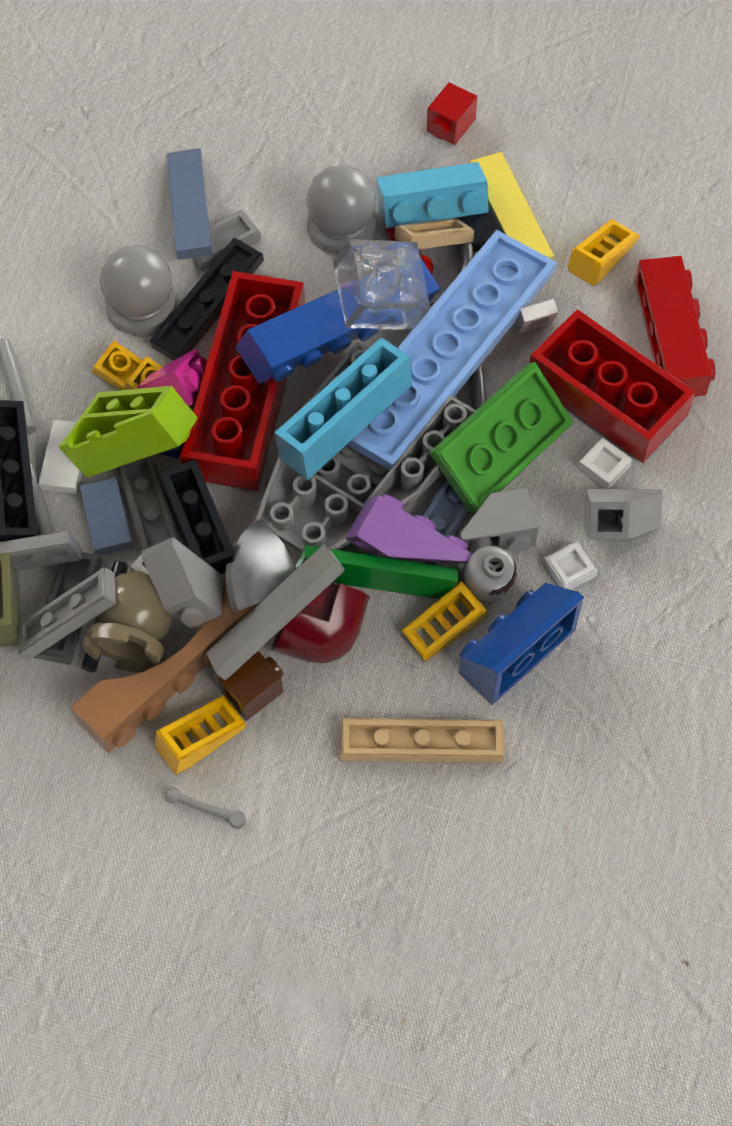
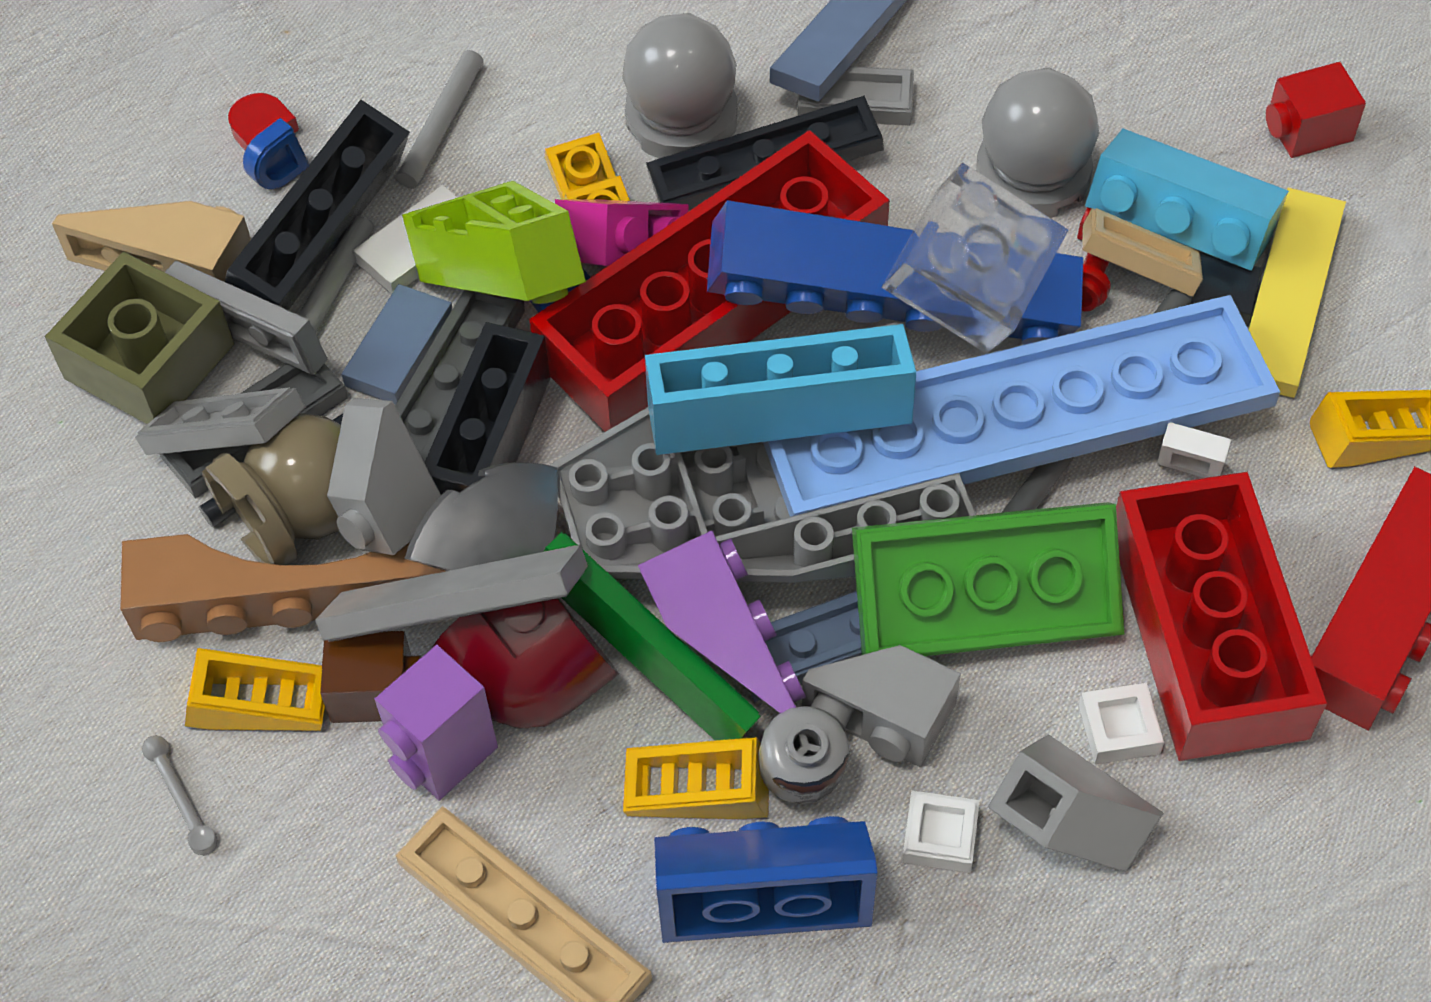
camera: 40 degrees right, 5 degrees down
(313, 679) = (436, 723): none -> medium lavender brick

